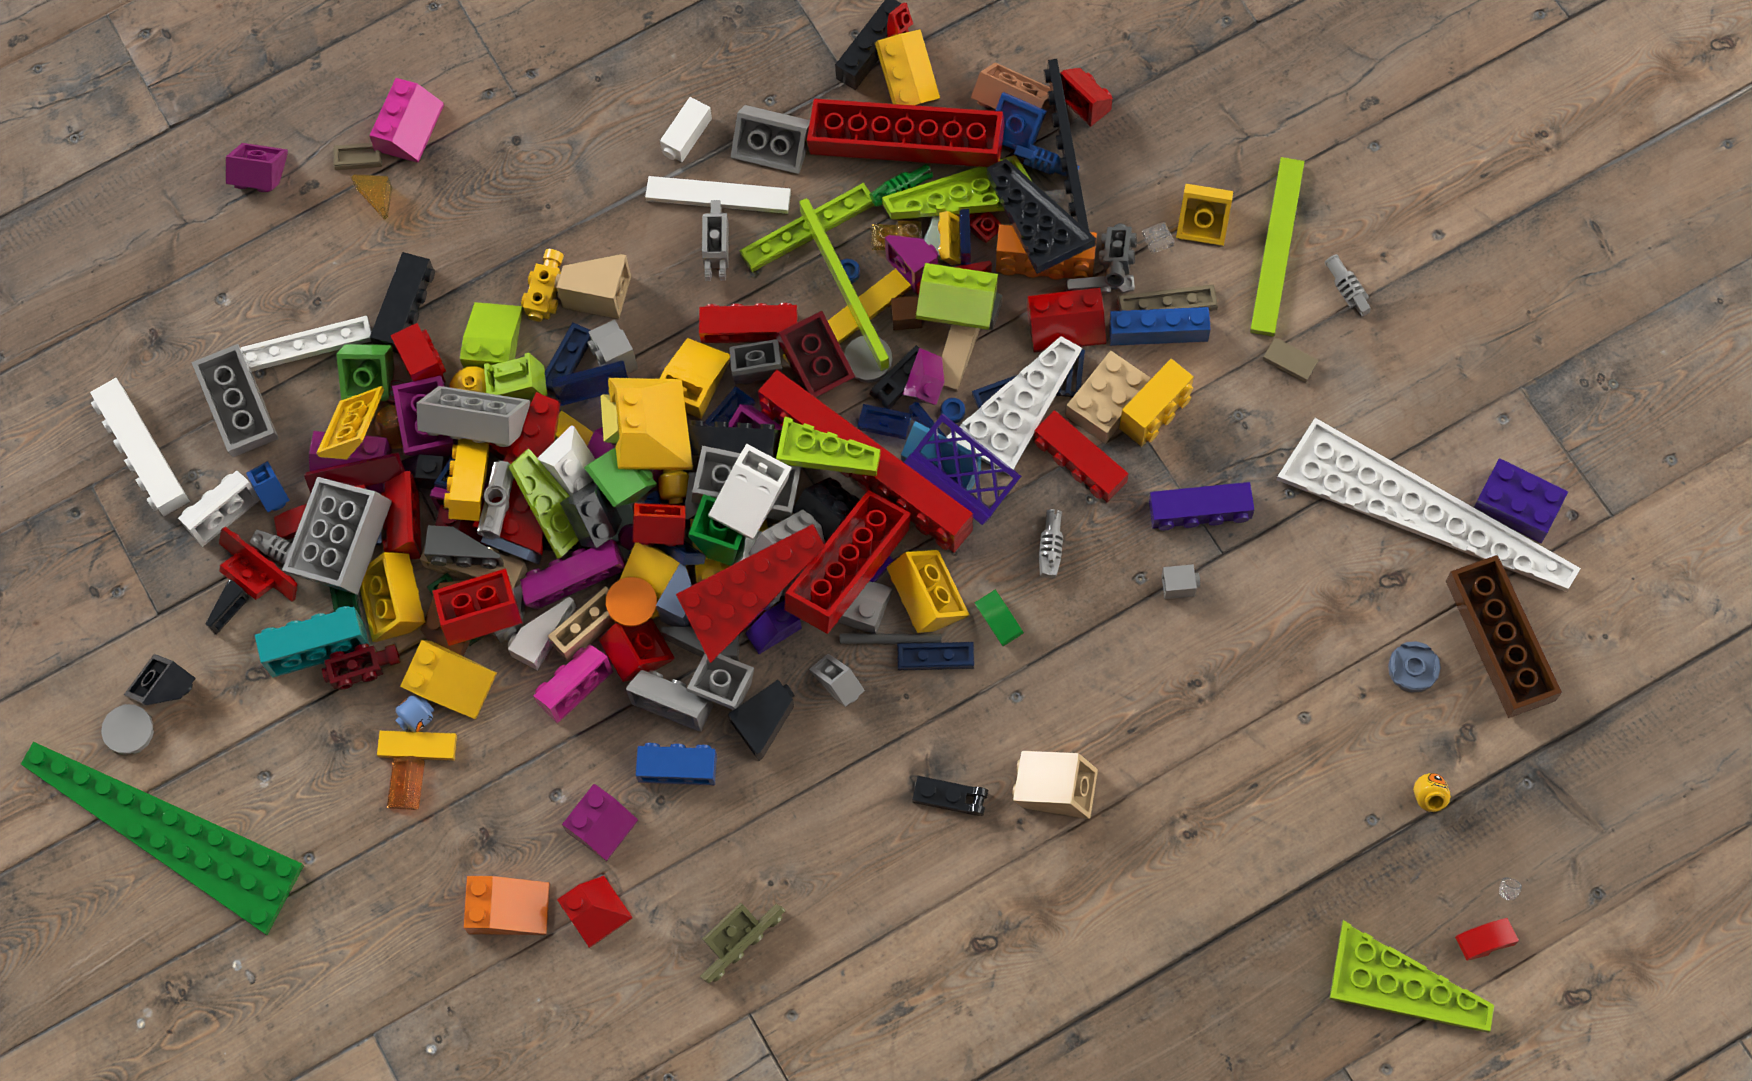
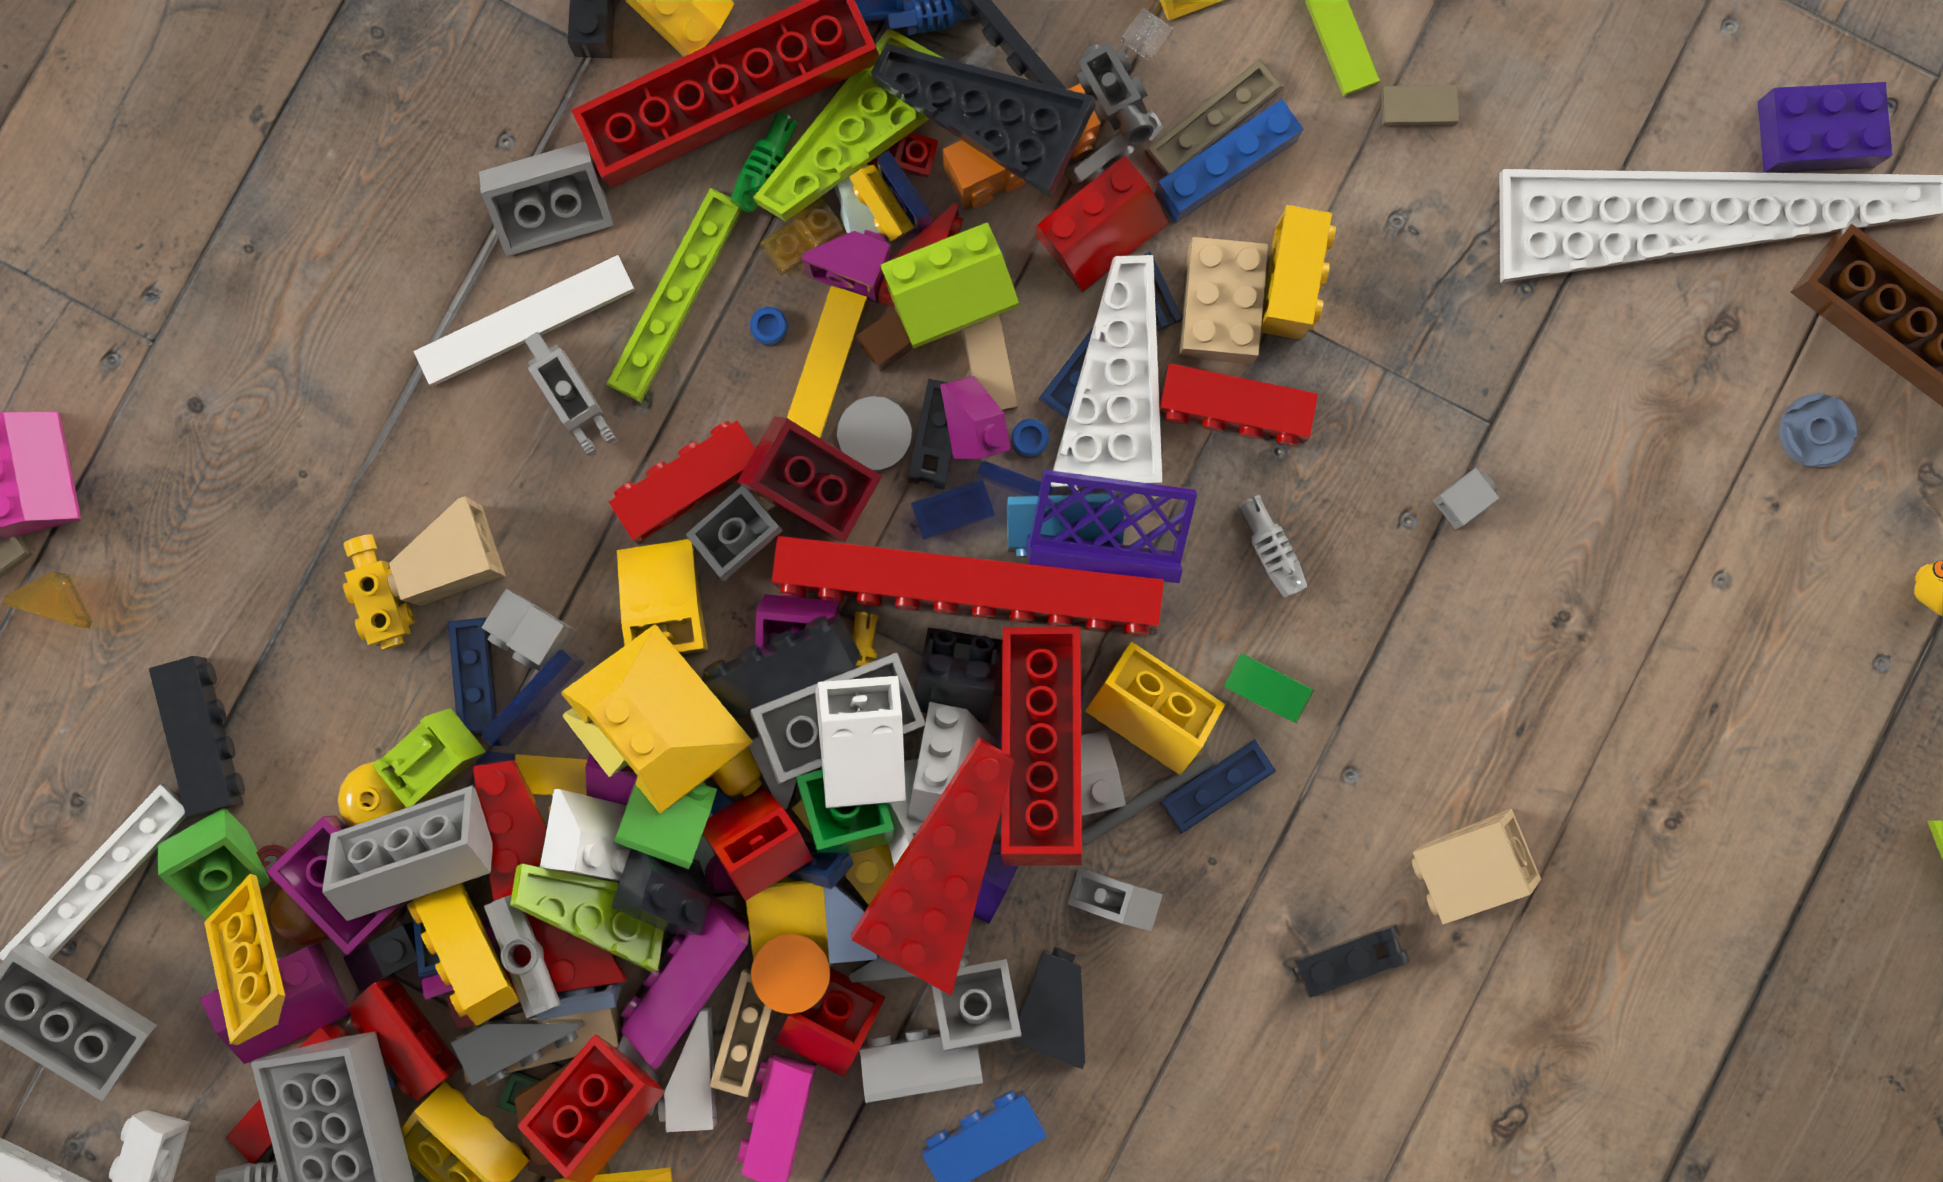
camera: 40 degrees left, 15 degrees up
(268, 487) = (188, 1105): blue slope -> none
(365, 472) = (303, 1016): dark red tile -> none
(418, 353) = (272, 804): red brick -> none
(491, 334) = (350, 708): lime slope -> none
(685, 130) = (420, 255): white brick -> none
(728, 406) = (739, 618): clear blue plate -> none
(814, 449) = (909, 618): lime wing -> none
(844, 284) = (780, 351): lime tile -> none
(1201, 505) = (1432, 376): dark purple brick -> none

